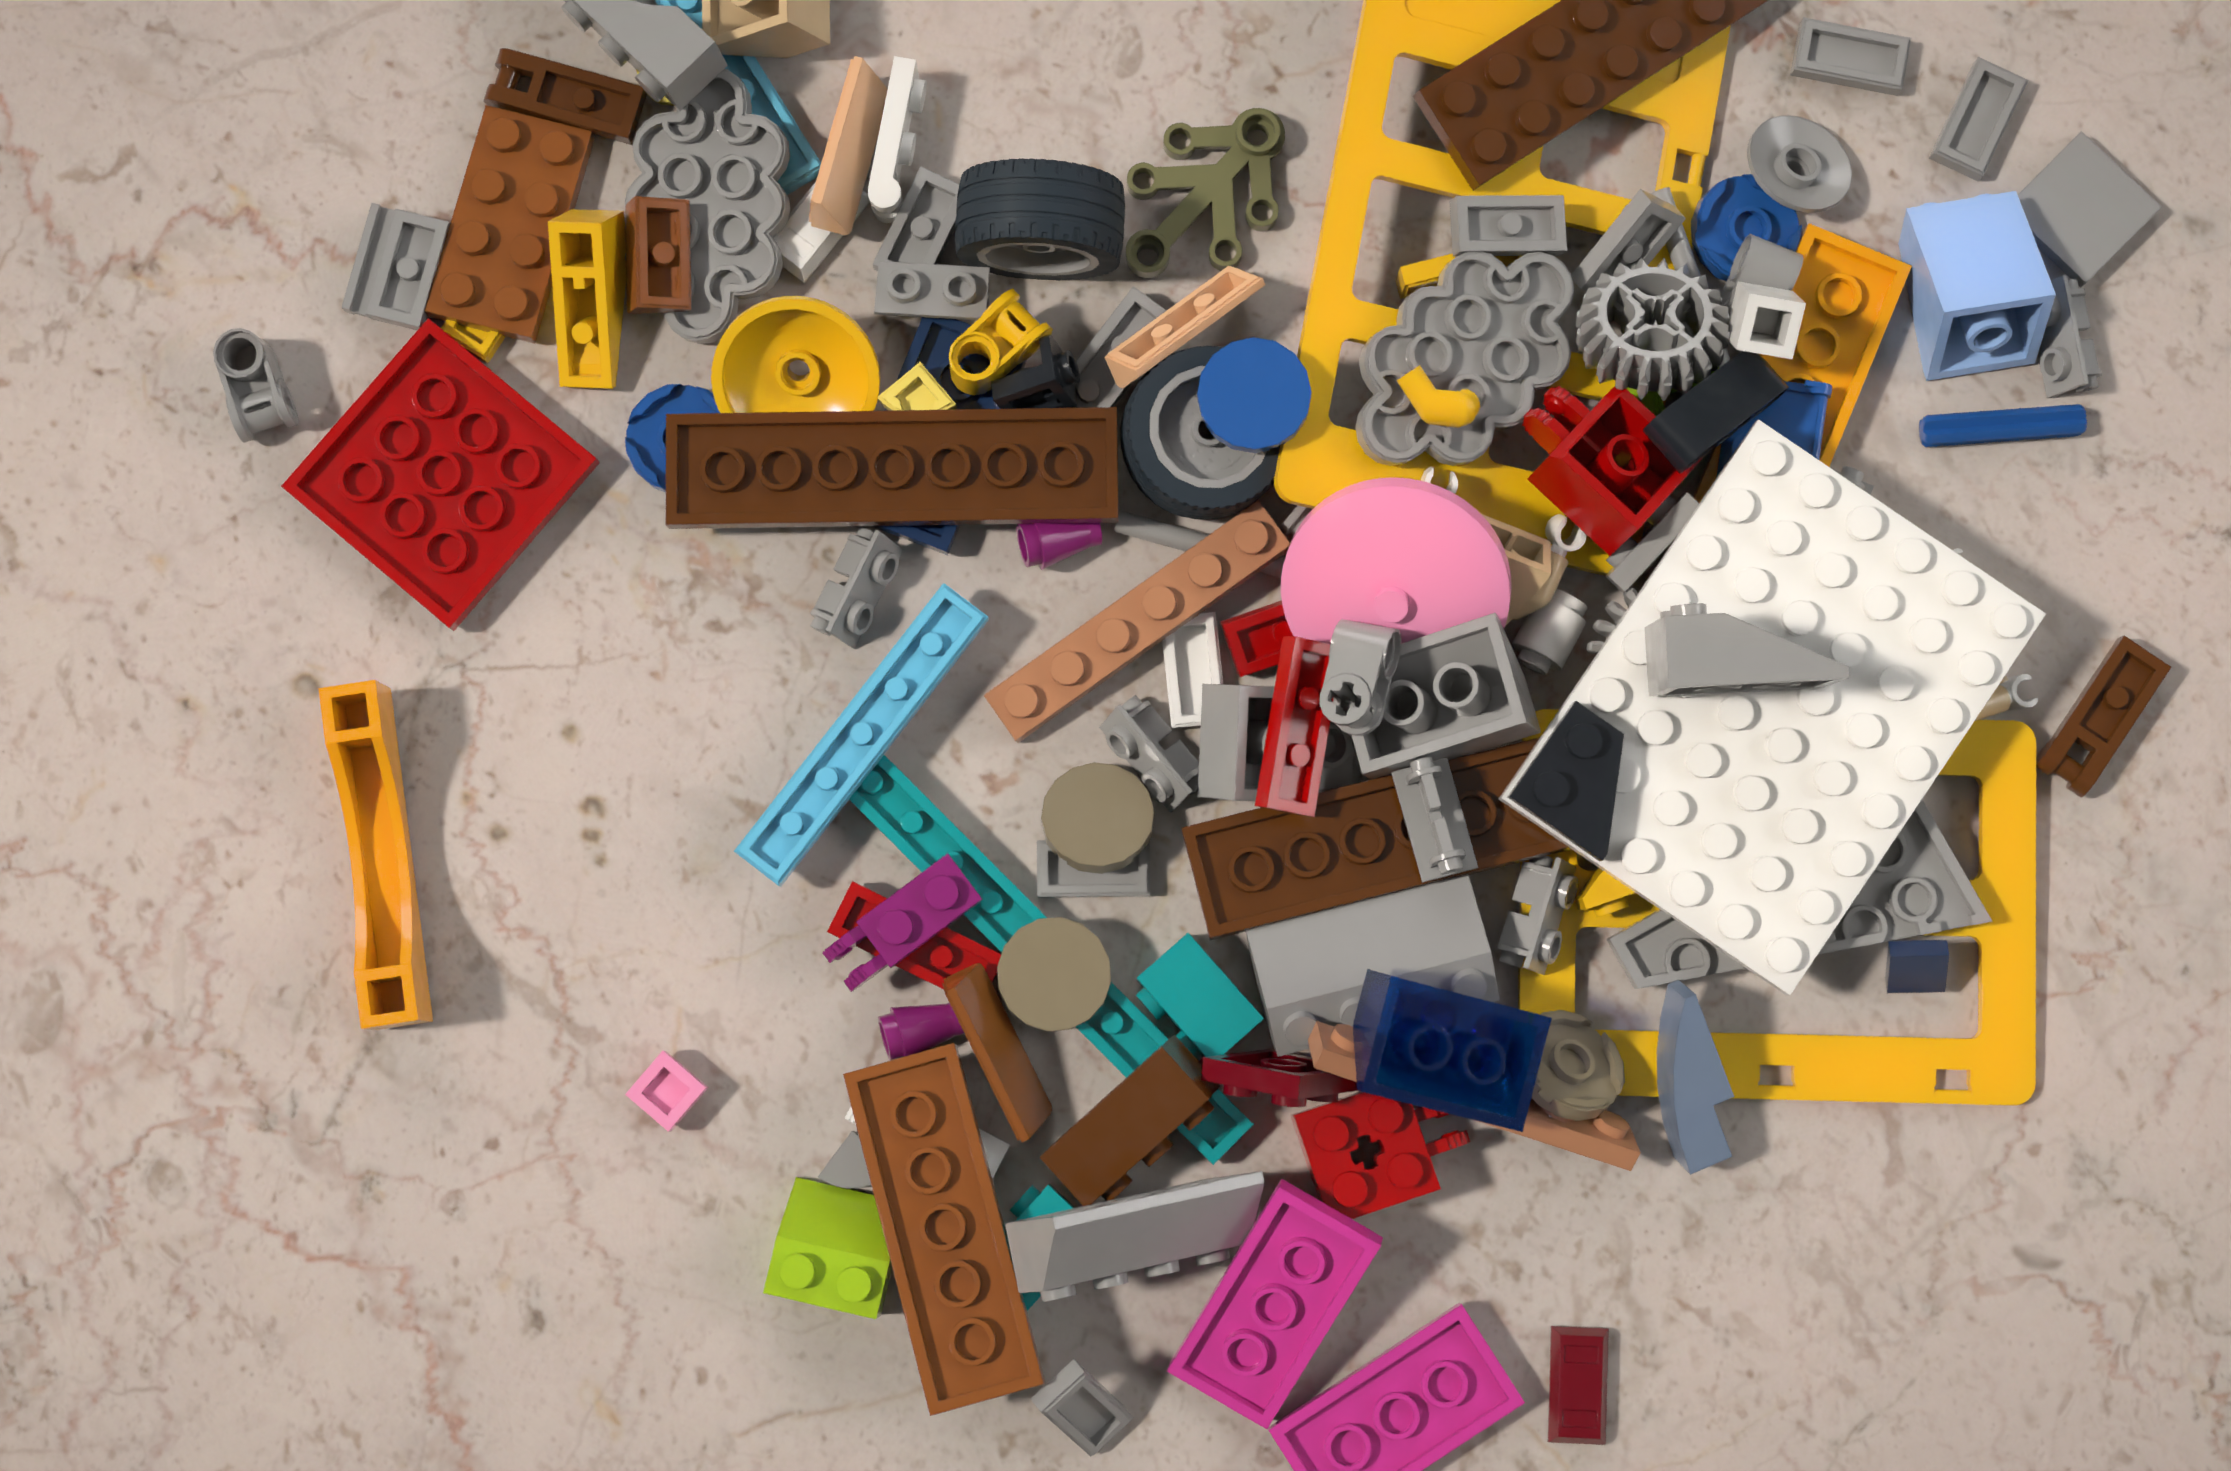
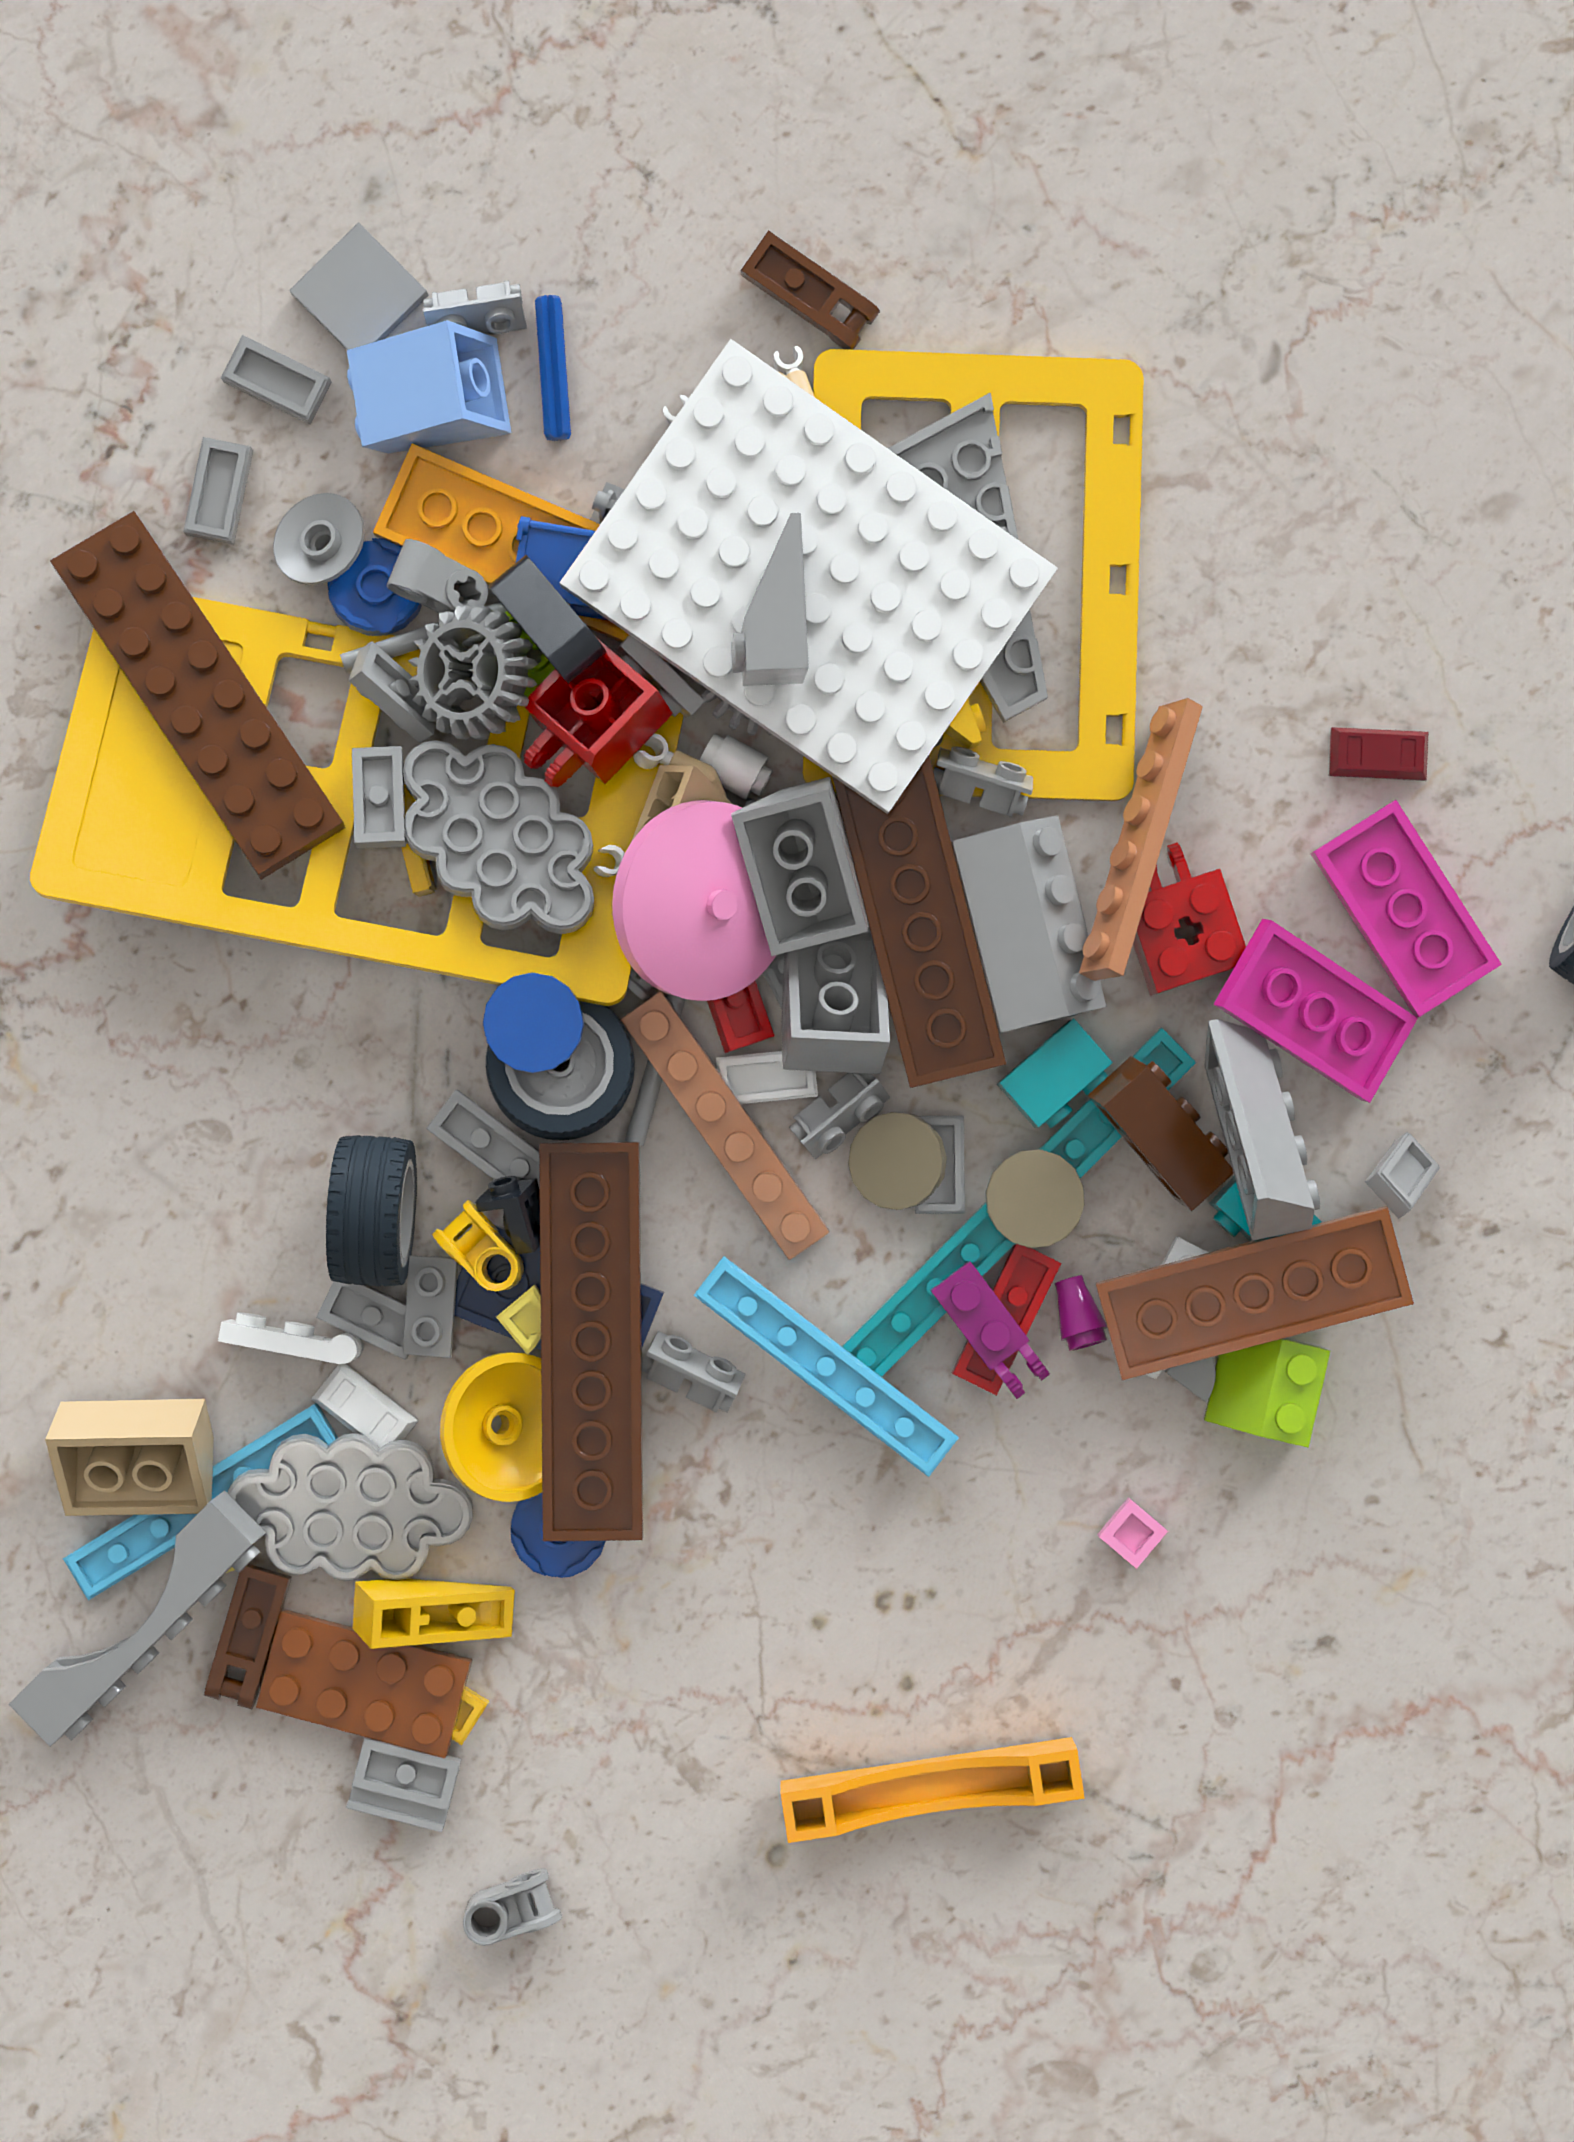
camera: 90 degrees left, 5 degrees up
(440, 474) = (591, 1741): red plate -> none
(658, 255) = (396, 1550): dark orange slope -> none
(848, 150) = (301, 1380): light nougat slope -> none
(998, 1050) = (1099, 1247): dark orange slope -> none
(1052, 542) = (656, 1200): magenta cone -> none
(1181, 324) = (463, 1085): light nougat slope -> none
(1210, 185) = (333, 1058): olive plant -> none
(1286, 1077) = (1127, 1003): dark red plate -> none
(1295, 730) = (825, 986): red plate -> none
(1362, 667) = (778, 933): light grey piece -> none
(1434, 819) = (905, 869): light grey hinge -> none
(1436, 405) = (545, 861): yellow arm -> none
(1447, 1050) = (1107, 862): clear blue slope -> none
(1575, 780) = (876, 748): black wing -> none
(1577, 1069) = (1114, 757): dark tan tile -> none
(1690, 1082) = (1127, 654): sand blue slope -> none
(1765, 320) = (469, 574): white brick -> none
(1917, 966) = (1027, 457): dark blue tile -> none

